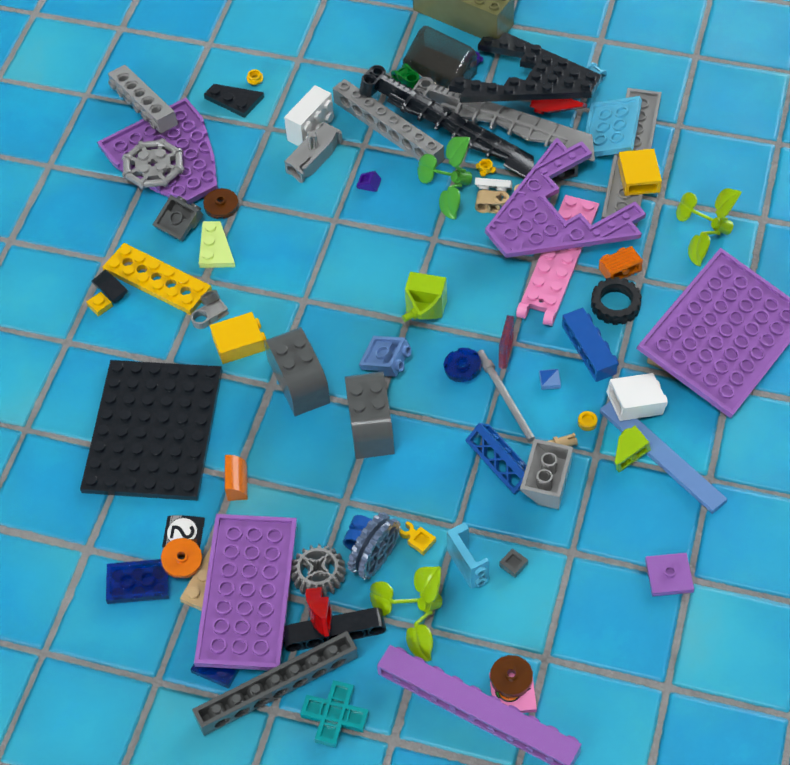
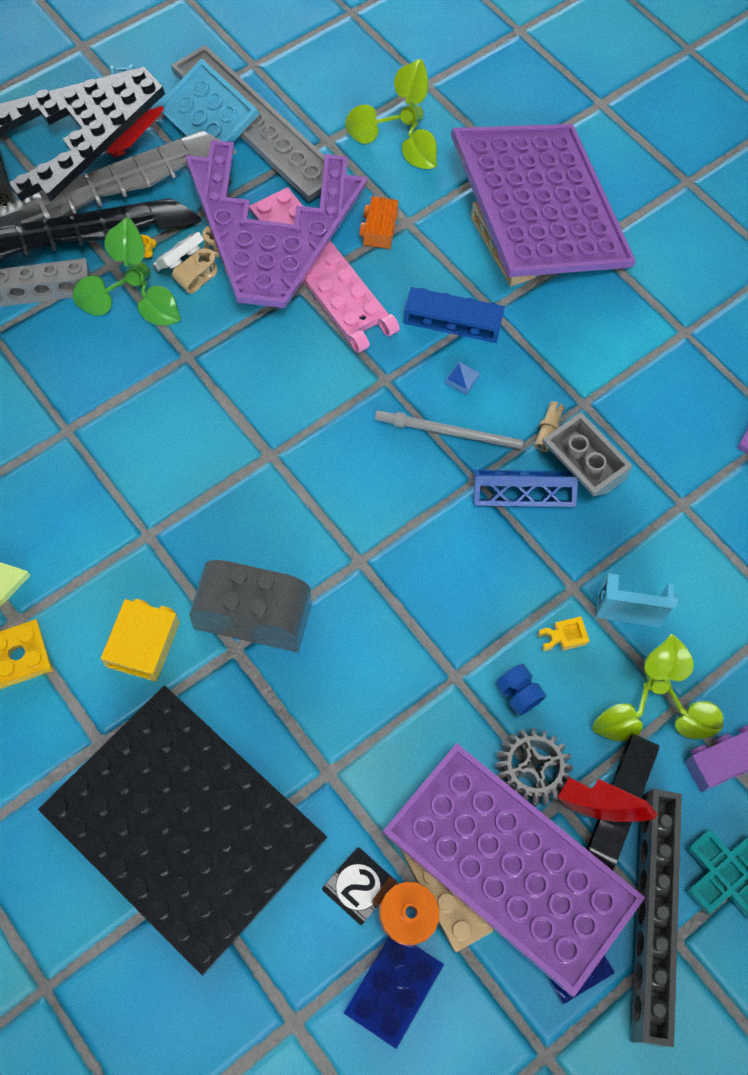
camera: 60 degrees left, 10 degrees up
(209, 297) = (54, 631): dark grey tile -> none
(213, 312) = (74, 641): light grey piece -> none
(236, 478) = (337, 775): orange brick -> none
(369, 181) = (49, 361): dark purple slope -> none
(369, 415) = (376, 570): dark grey brick -> none
(374, 545) = (566, 684): sand blue piece -> none
(386, 355) = (304, 504): medium blue plate -> none
(425, 296) = (267, 414): lime piece -> none
(463, 357) = (379, 430): clear blue plate -> none
(506, 341) = (394, 380): clear pink tile -> none
(513, 562) = (663, 564): dark grey plate -> none
(587, 421) = (539, 382): yellow tile -> none
(611, 315) = (421, 238): black tyre -> none
(630, 447) = (609, 367): lime slope -> none
(636, 396) = (554, 320): white brick -> none
(639, 172) = (290, 126): yellow brick -> none
(671, 463) = (630, 349): medium blue tile -> none

